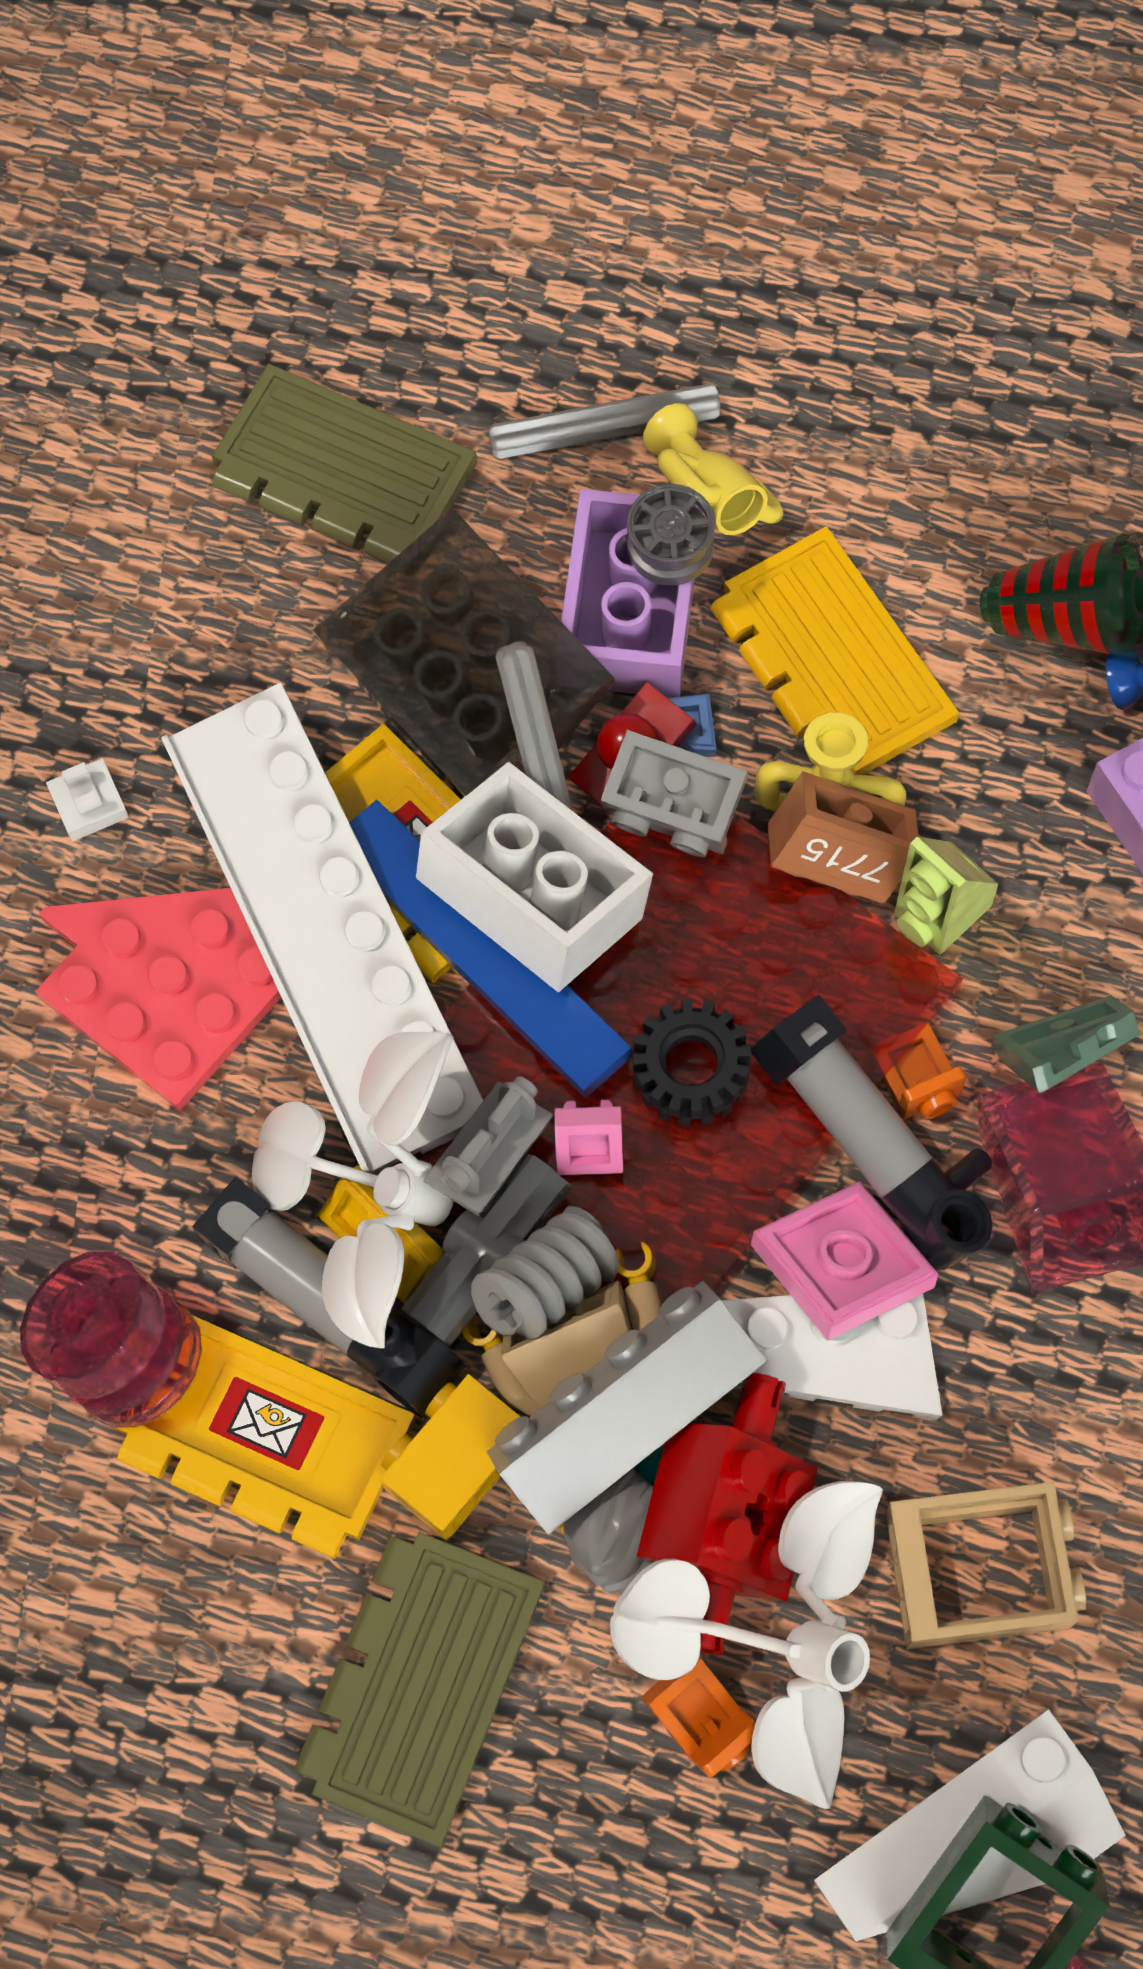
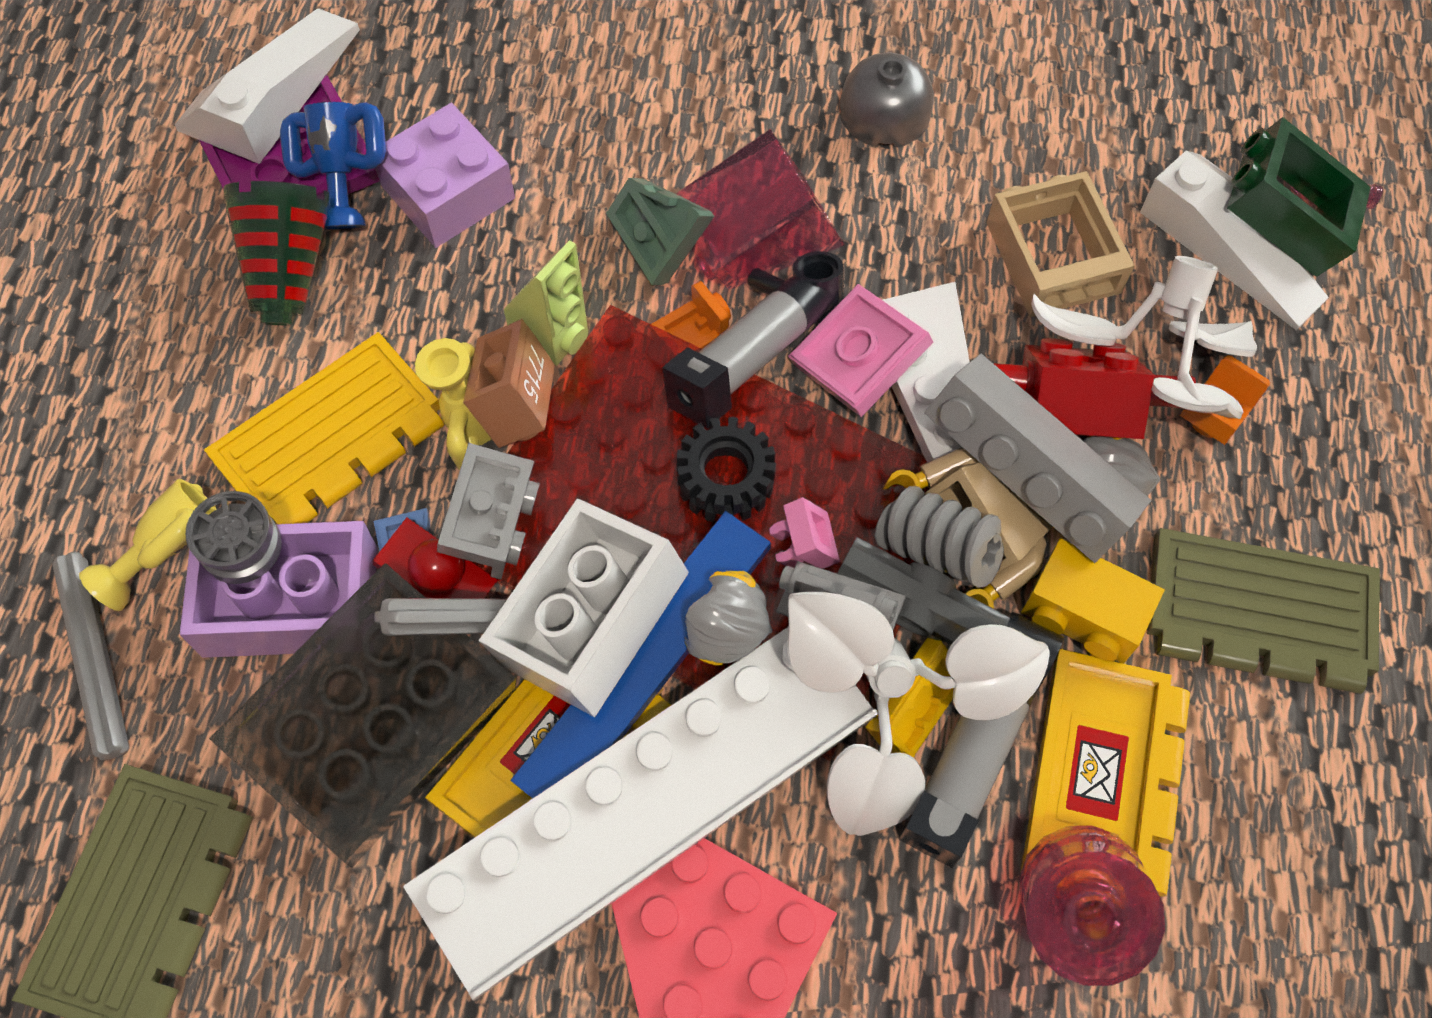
camera: 105 degrees left, 5 degrees down
(491, 1022) = (727, 619): none -> light grey hair

